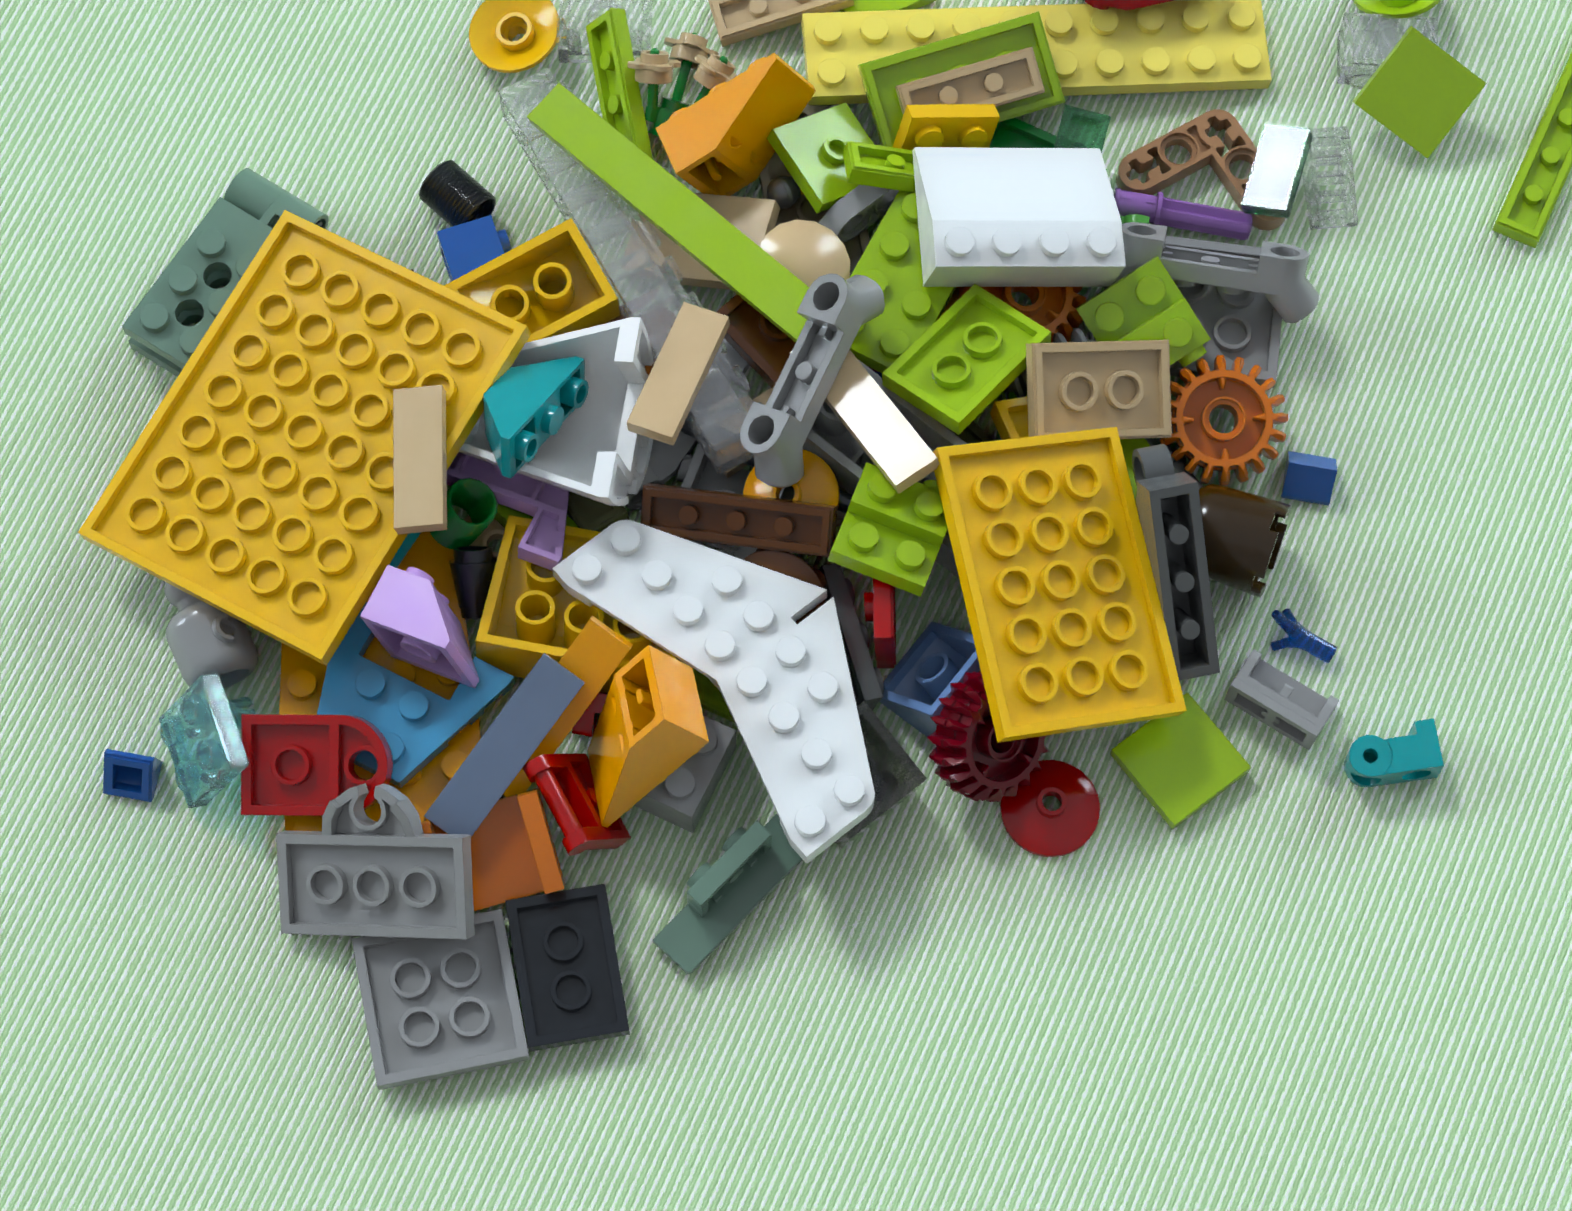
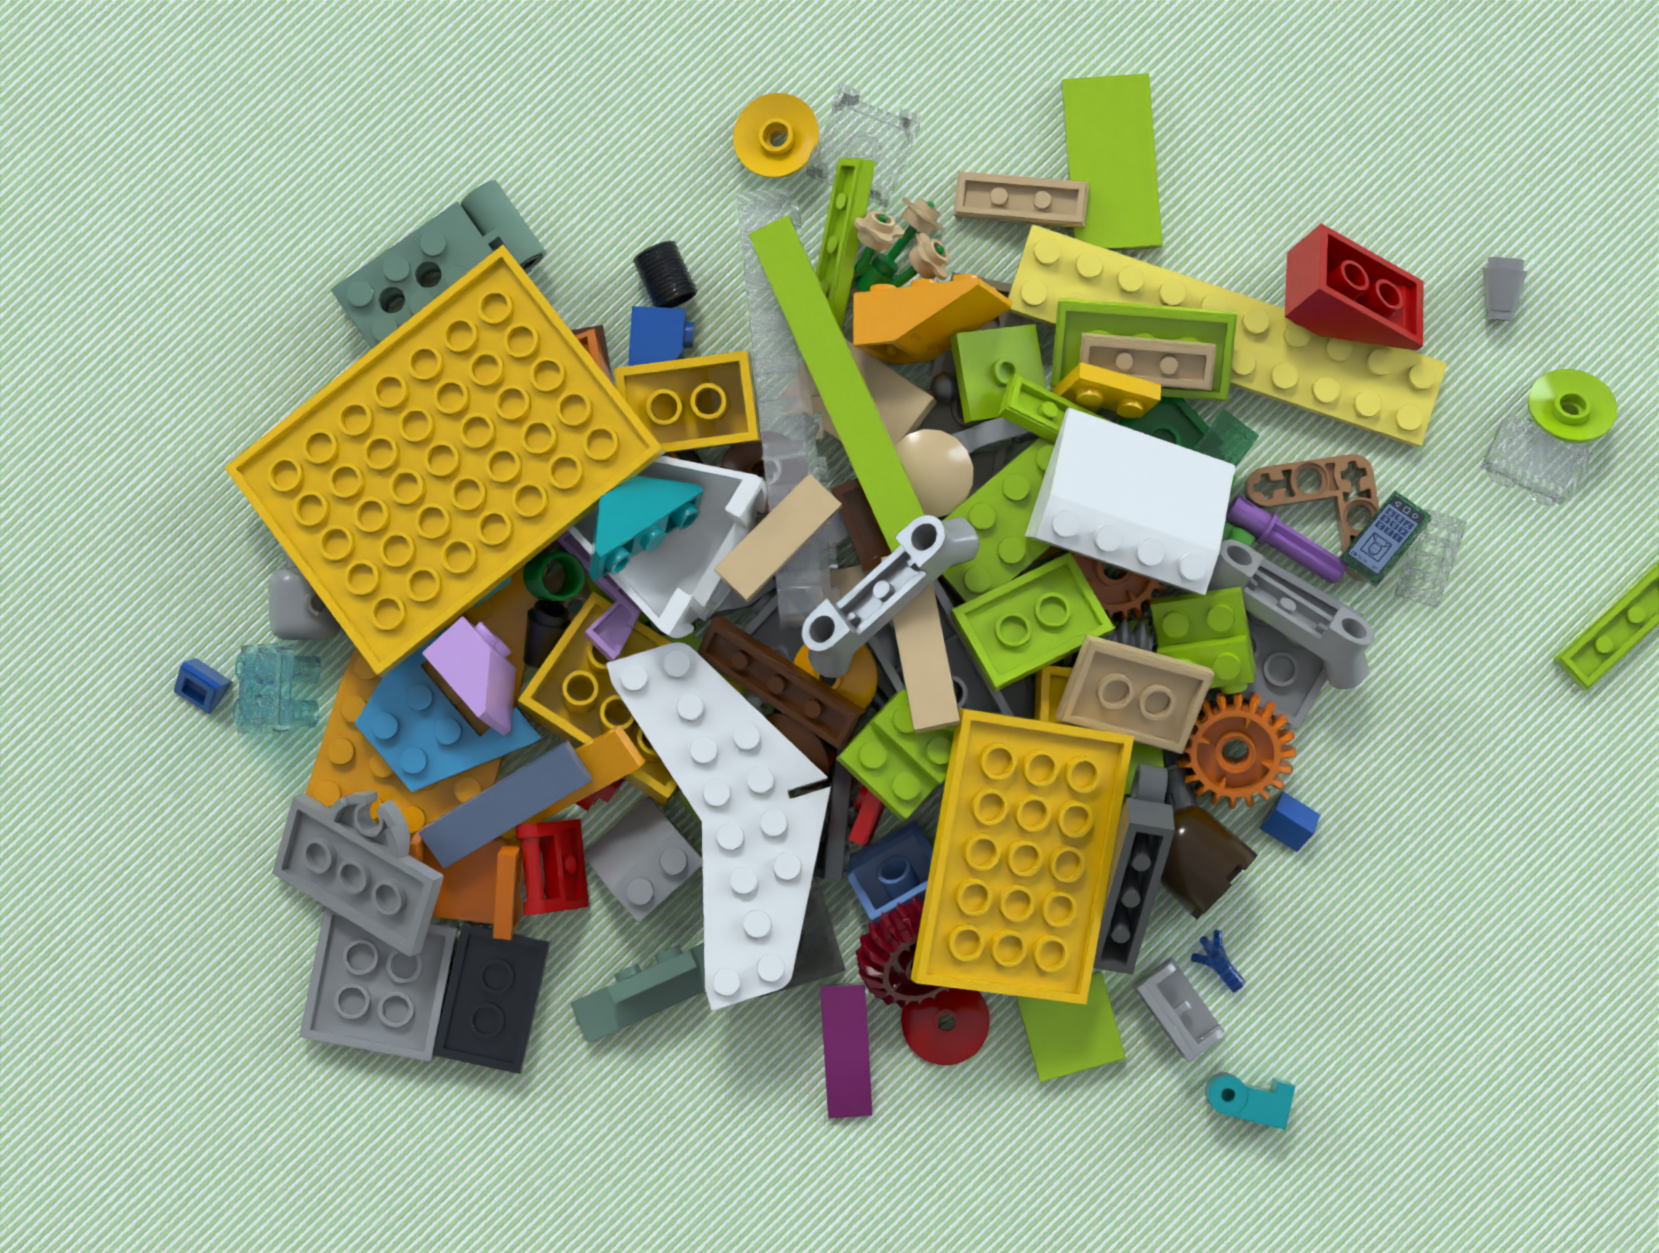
camera: 25 degrees right, 15 degrees up
(307, 762) = (342, 746): red tile -> none
(419, 459) = (524, 534): tan tile -> none
(644, 730) = (626, 840): light orange slope -> none
(961, 870) = (846, 1050): none -> magenta slope
(1419, 92) = (1544, 515): lime tile -> none

